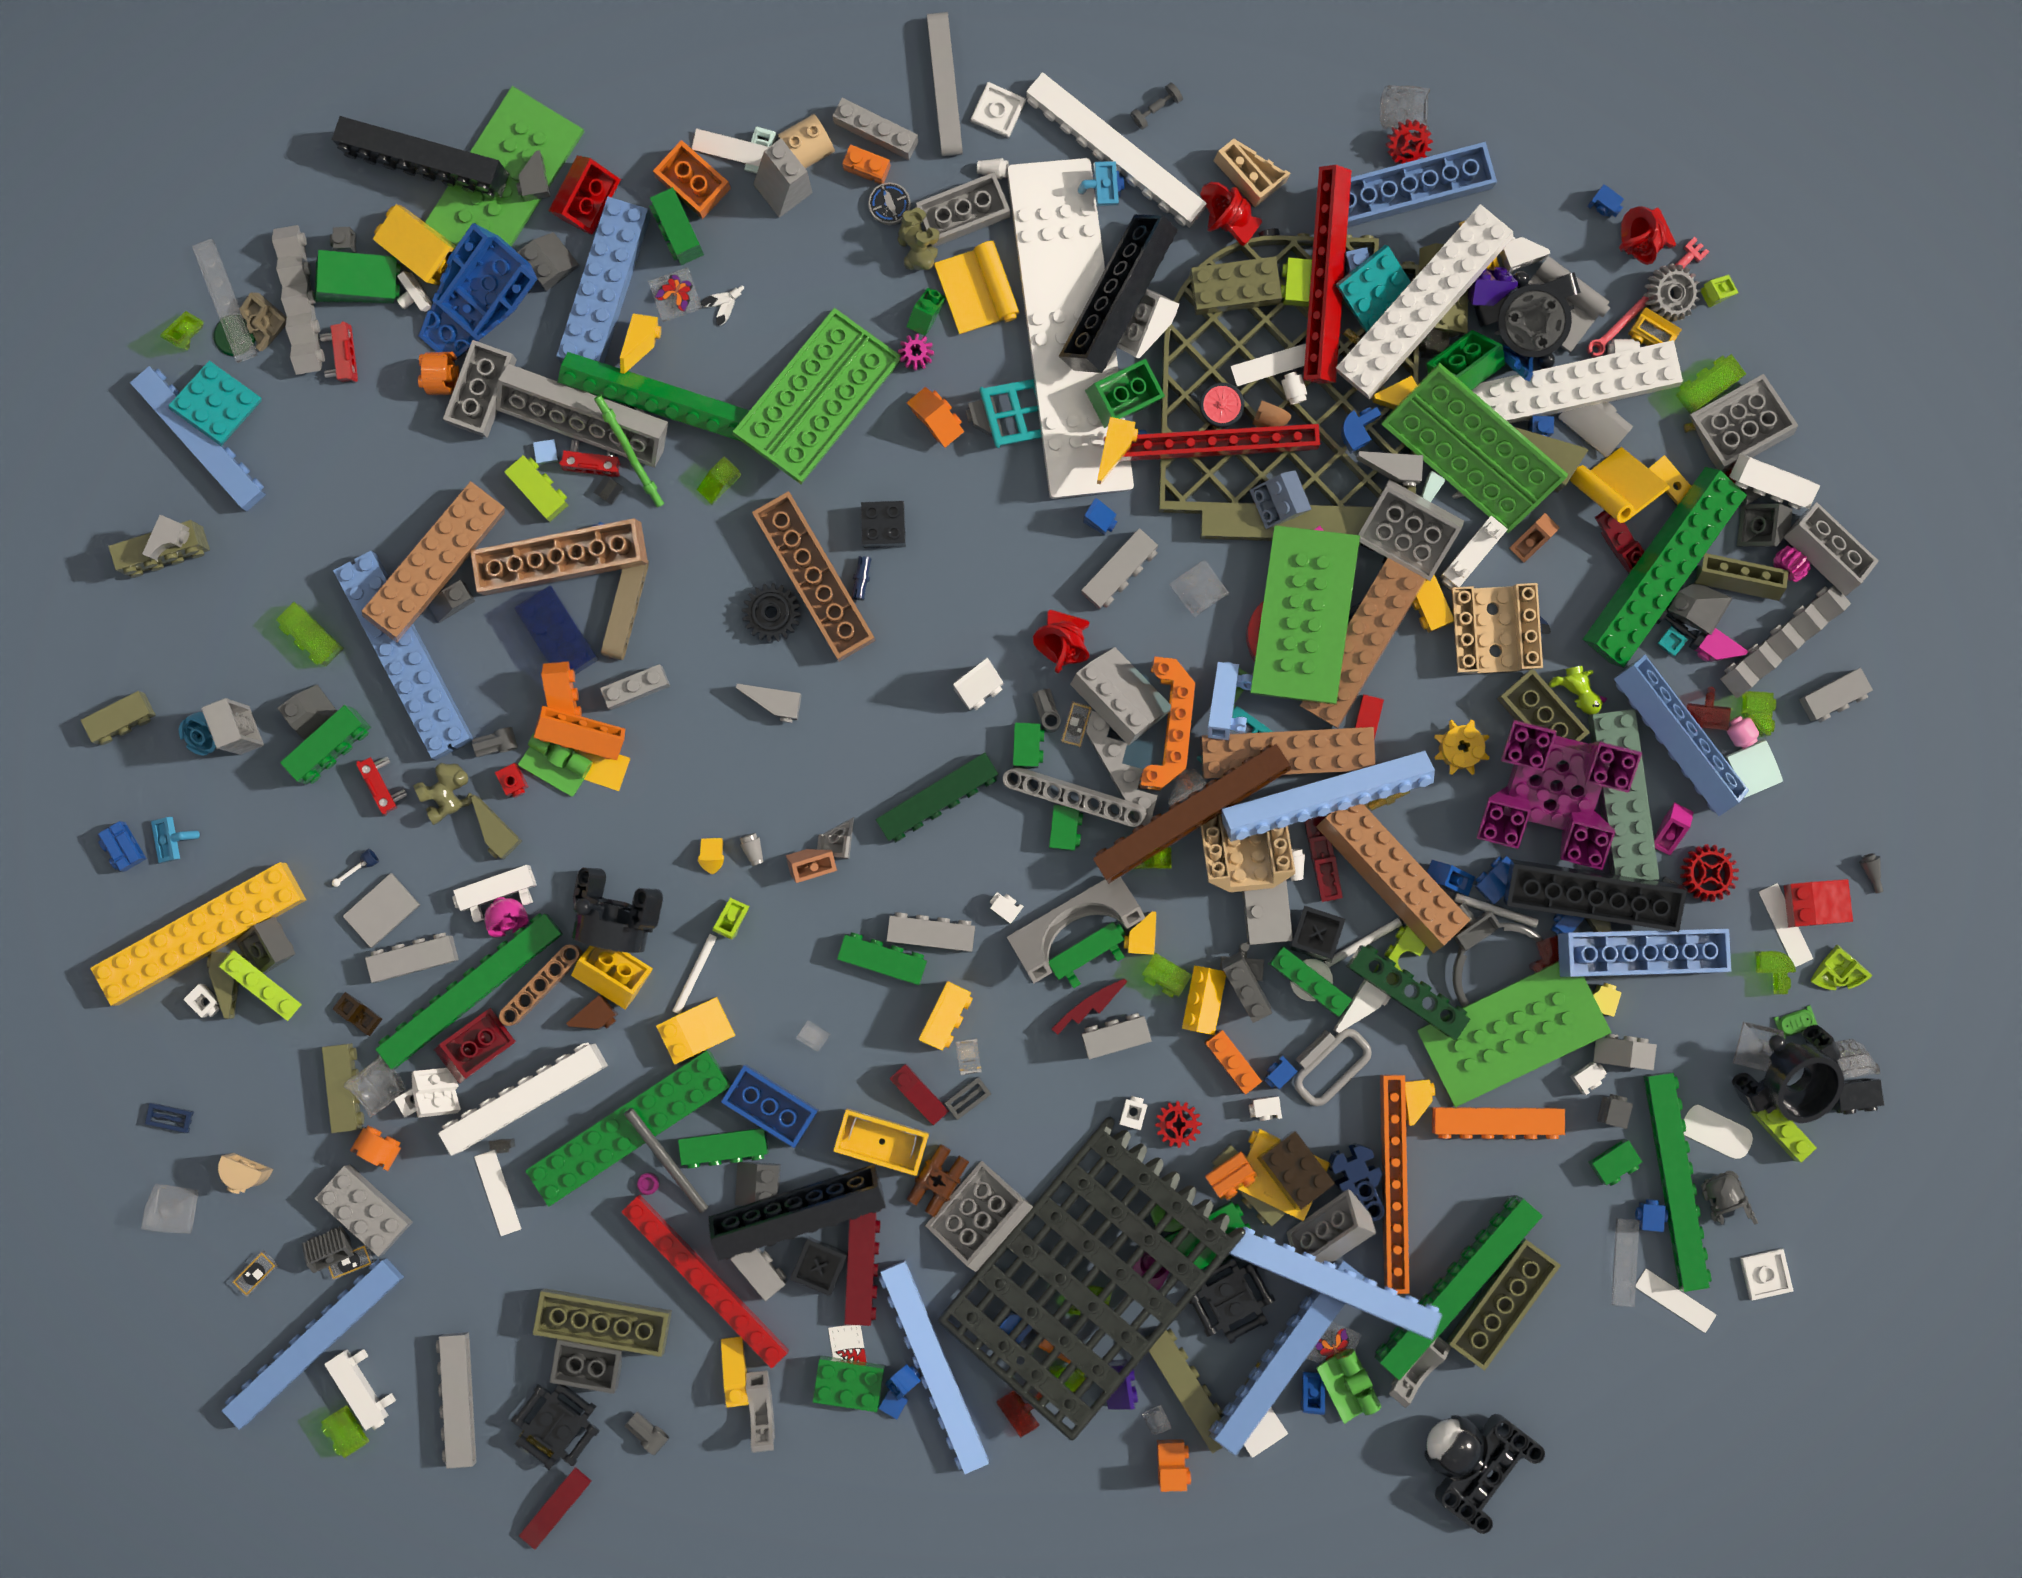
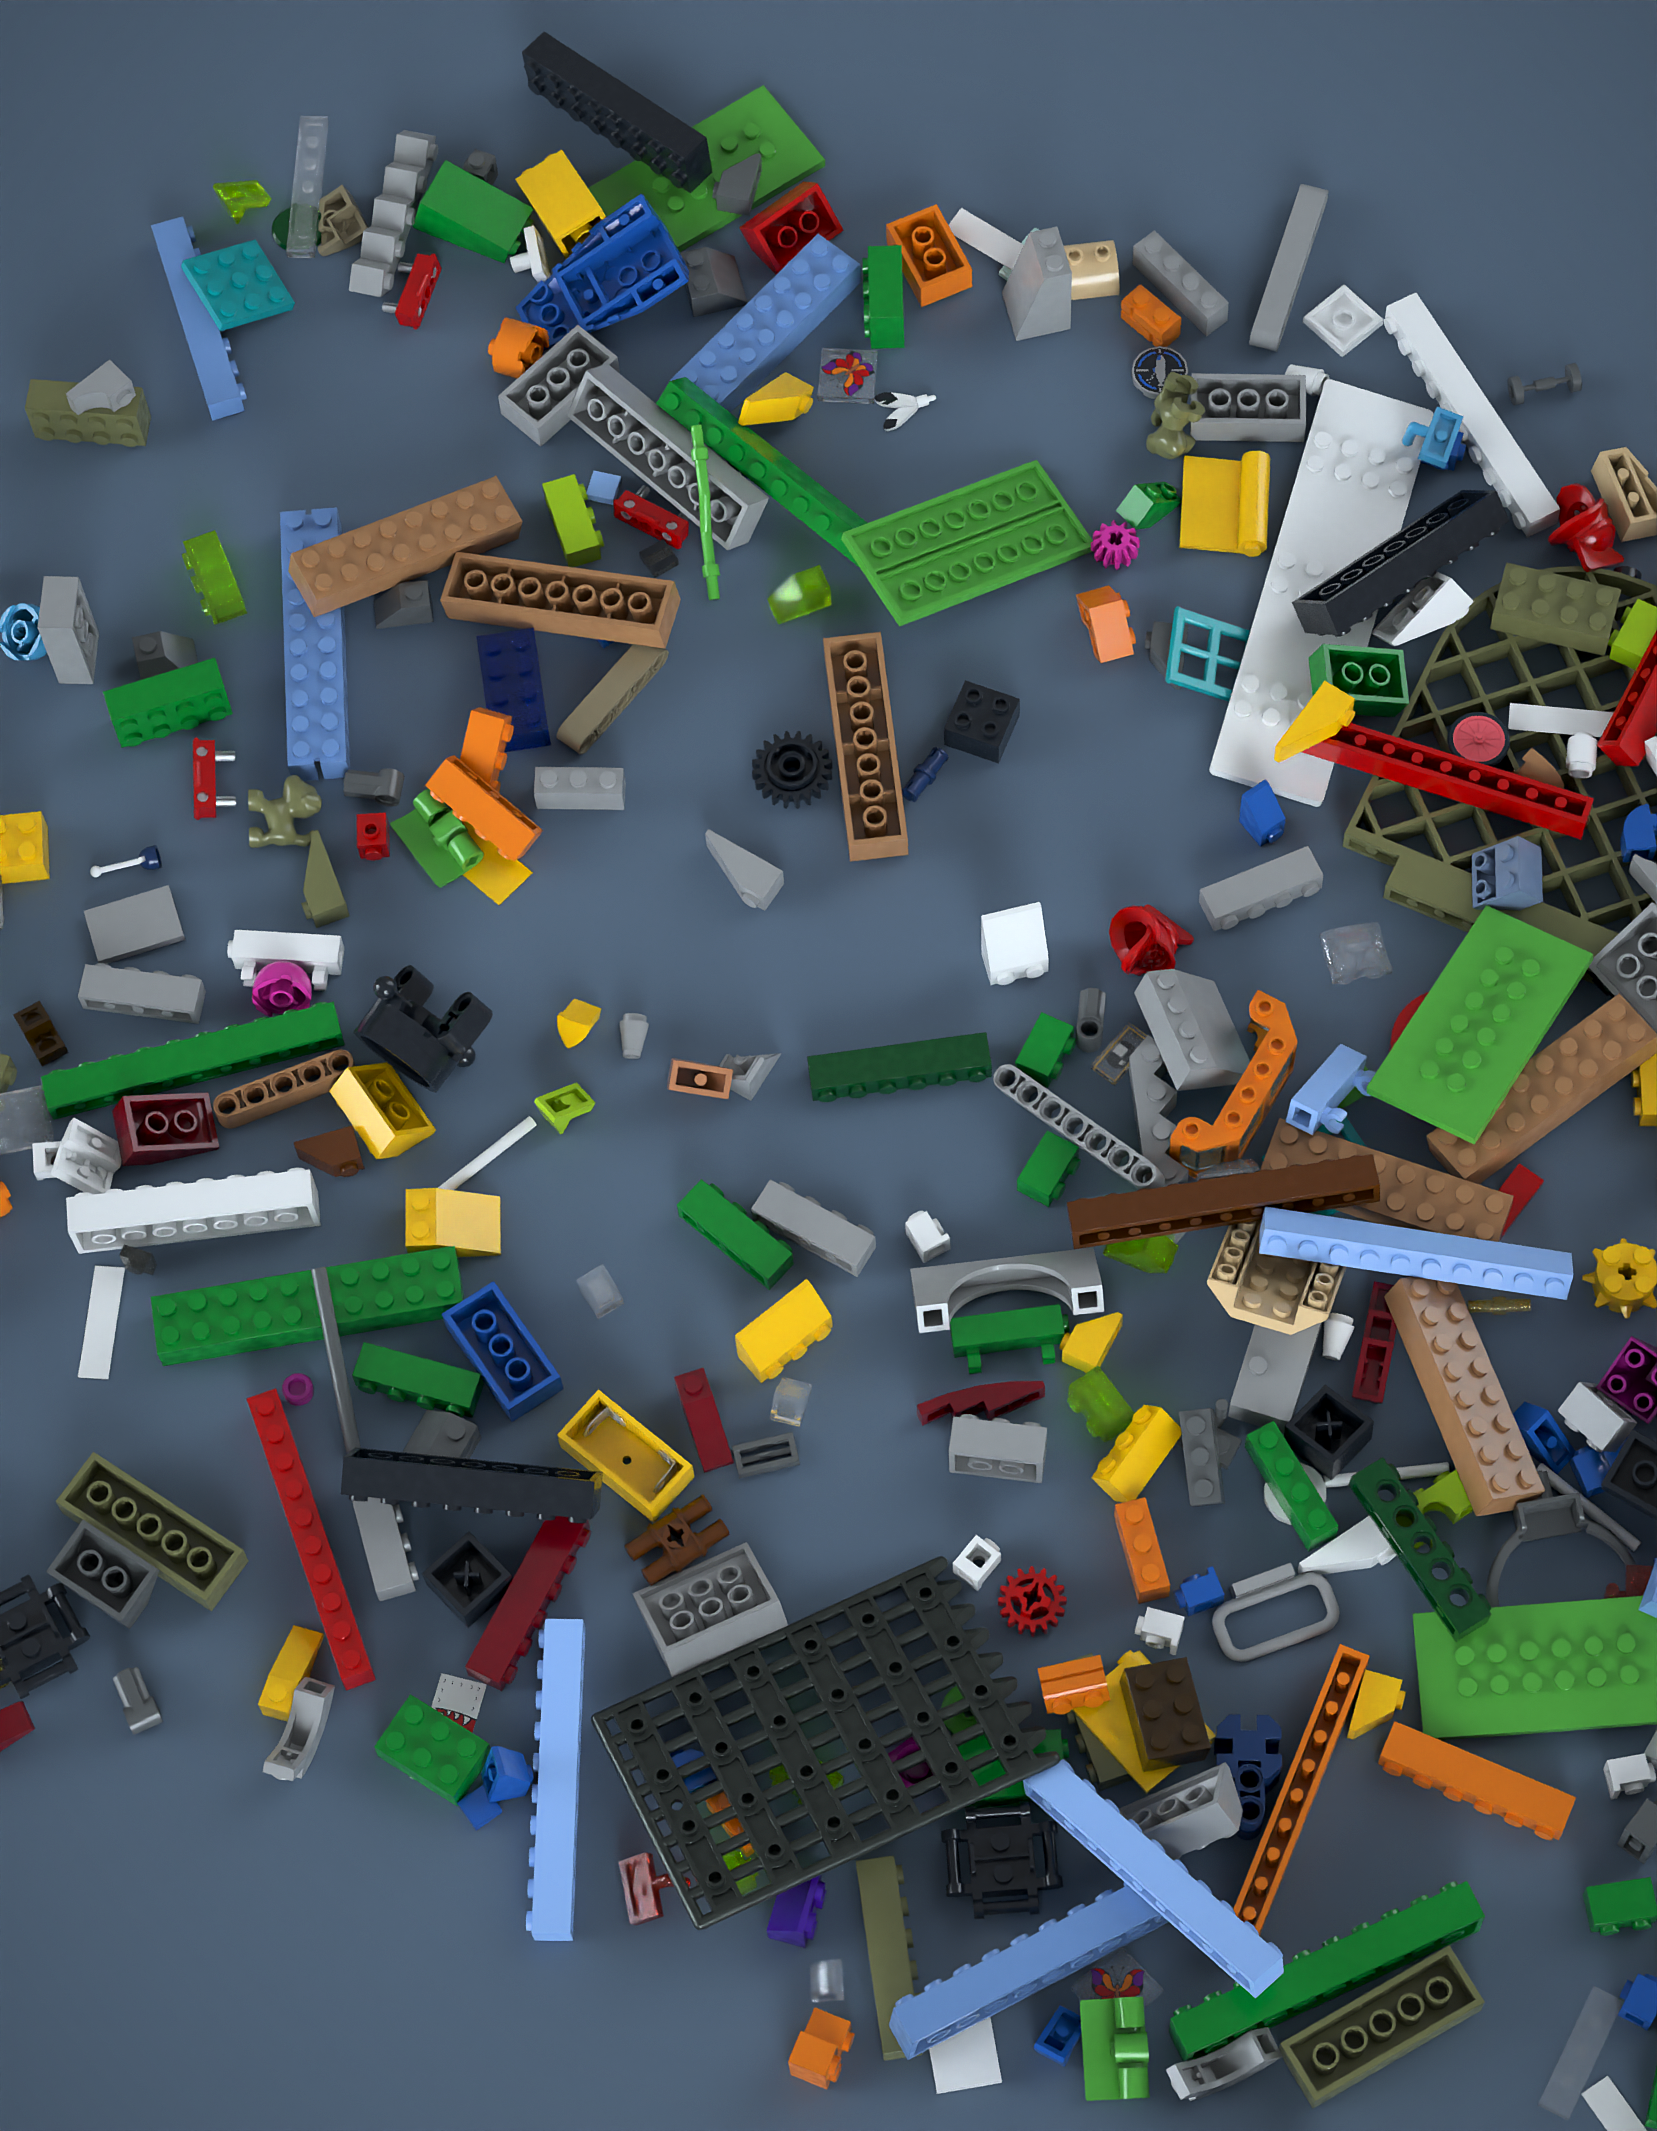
camera: 30 degrees right, 20 degrees down
(1484, 857) = (1596, 1417): none -> light grey brick

